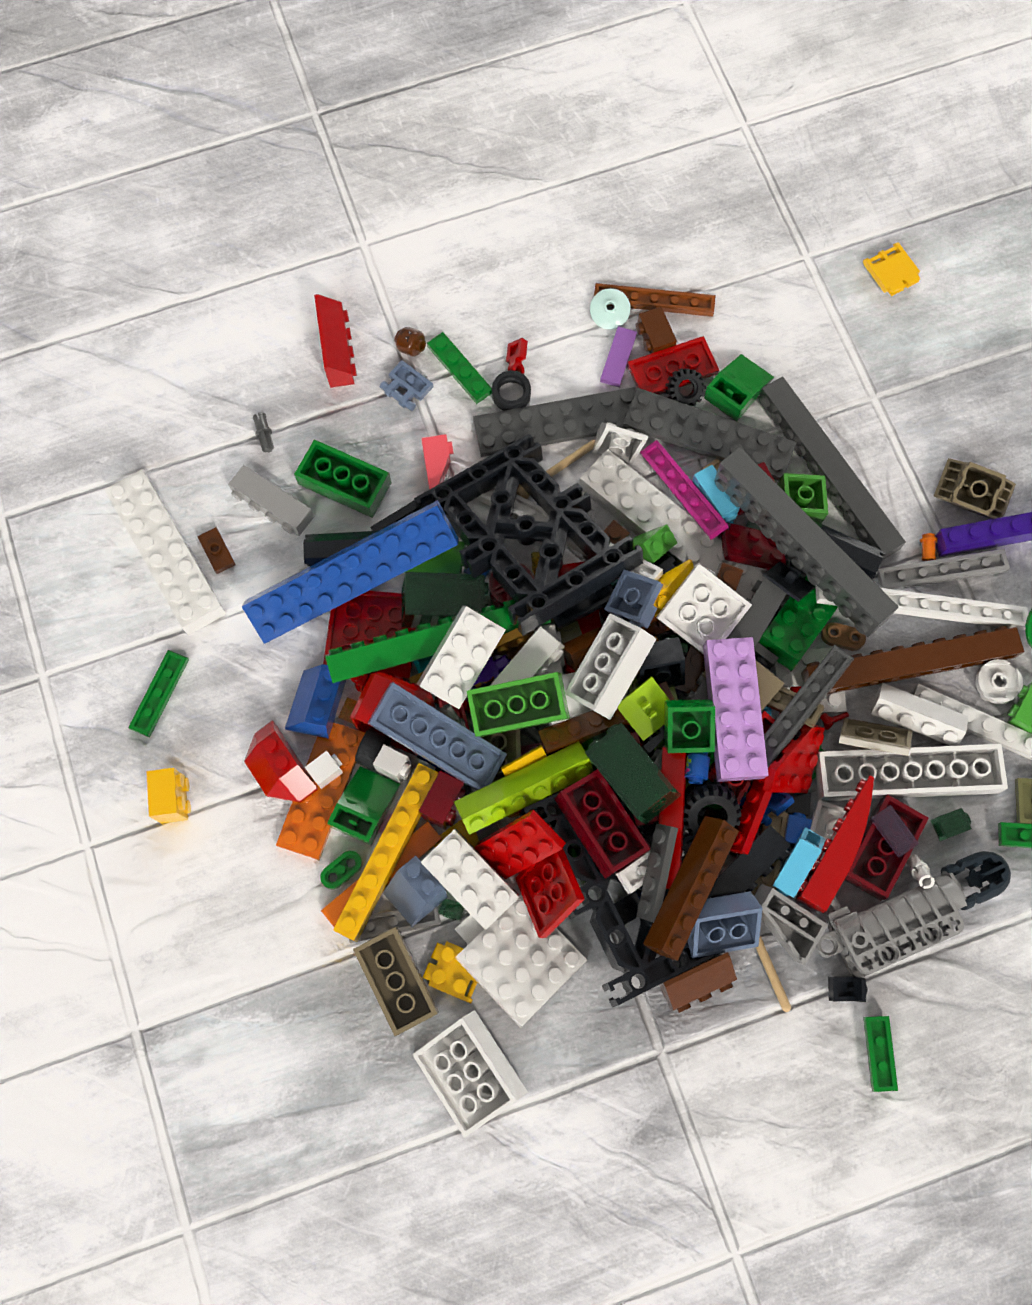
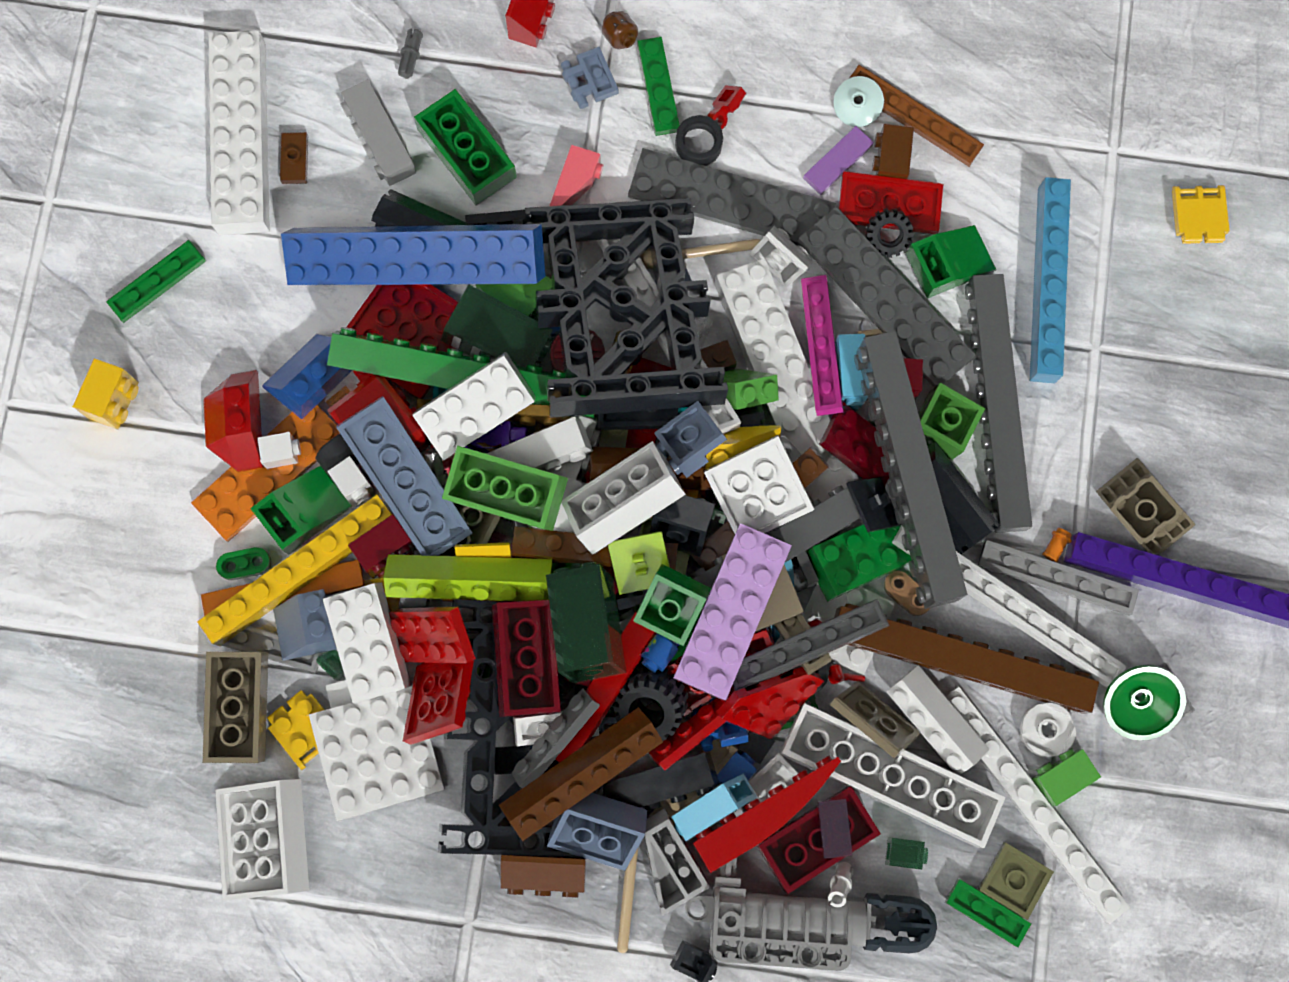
camera: 20 degrees right, 5 degrees up
(817, 366) = (1050, 280): none -> dark azure brick

